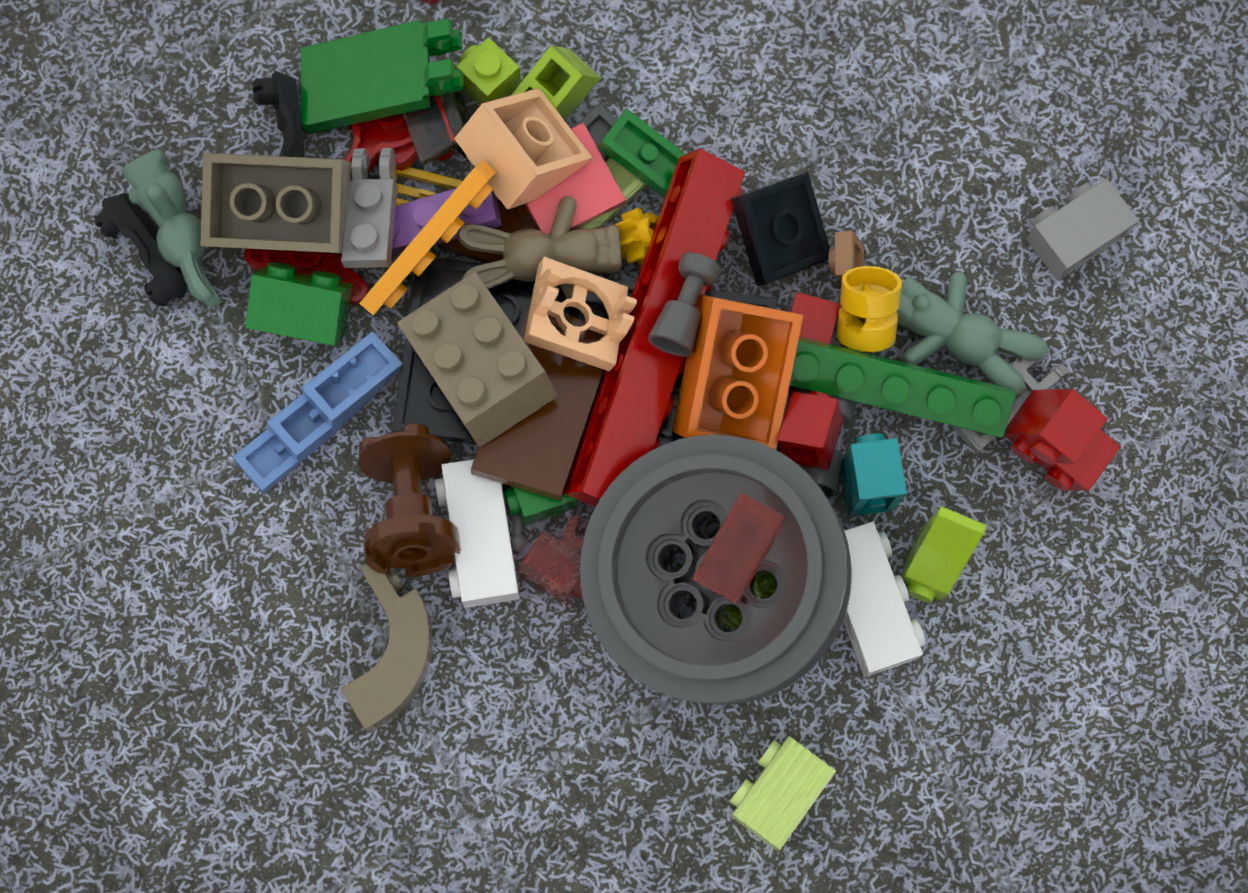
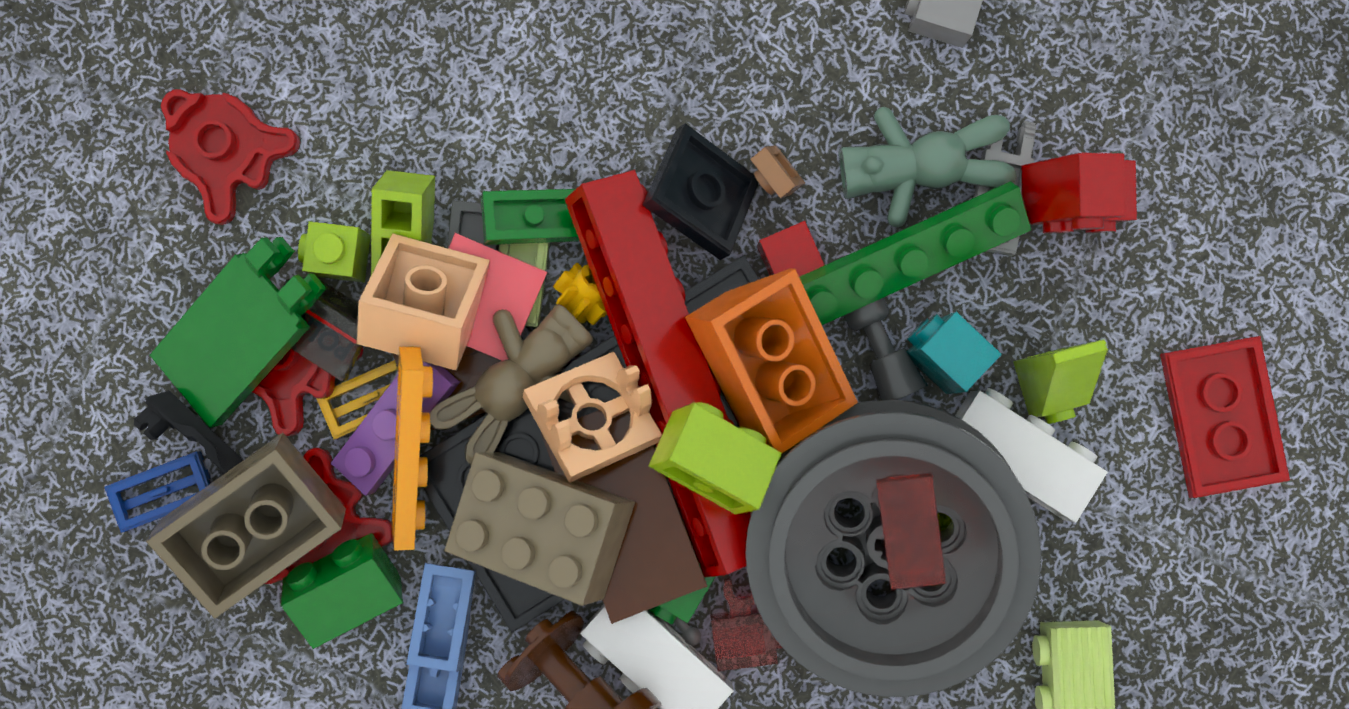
camera: 35 degrees left, 10 degrees up
(128, 218) = (130, 630): black piece -> none
(178, 232) = (150, 597): sand green animal -> none
(198, 119) = (200, 477): none -> blue tile
(370, 212) = (336, 461): light grey hinge -> none
(640, 401) = (716, 458): none -> lime brick
(679, 319) = (690, 359): dark grey piece -> none
(811, 429) = (868, 354): red brick -> none
(869, 308) = (835, 207): yellow wheel -> none
(1048, 697) = (1224, 417): none -> red tile

